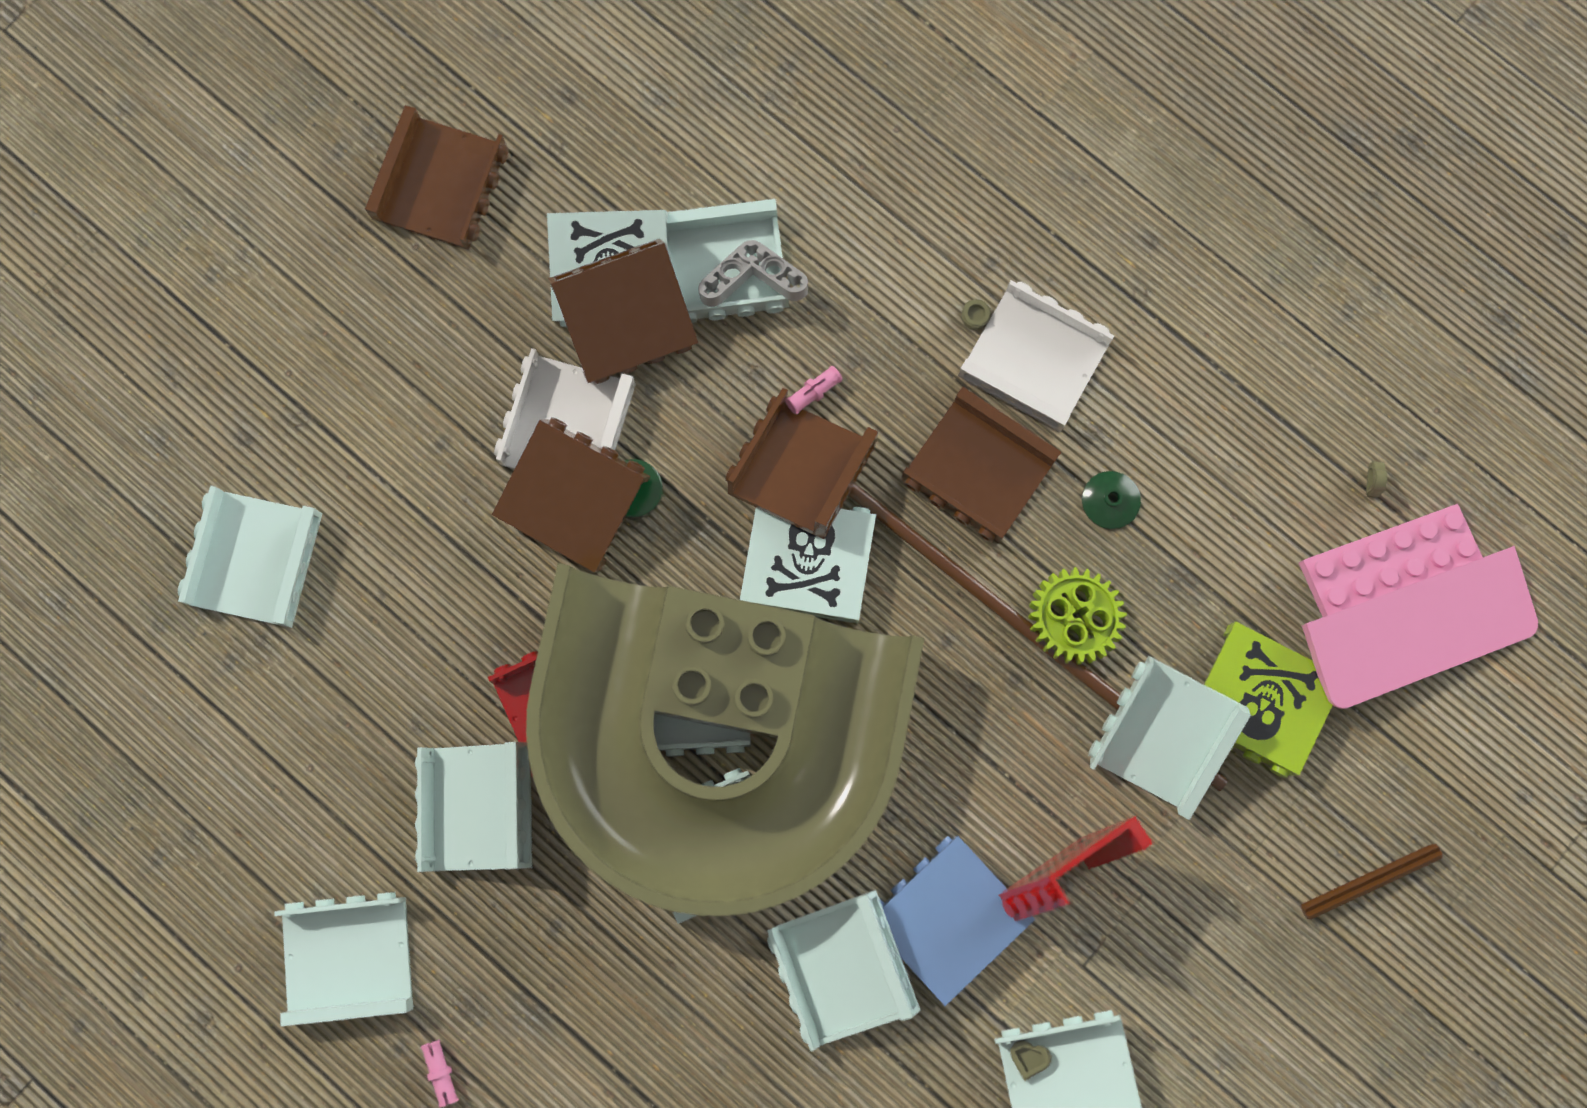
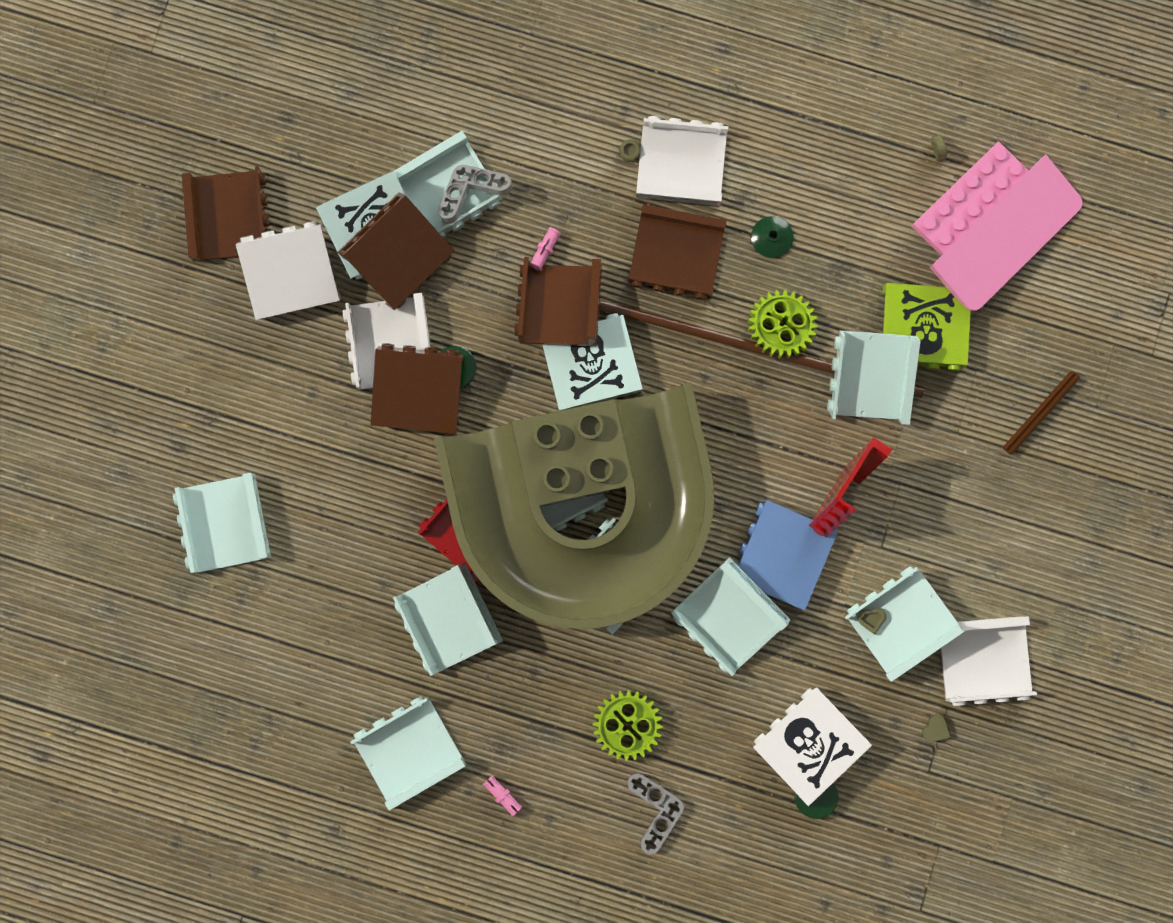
camera: 25 degrees left, 5 degrees up
(477, 276) = (287, 270): none -> white panel
(617, 1062) = (612, 738): none -> lime gear

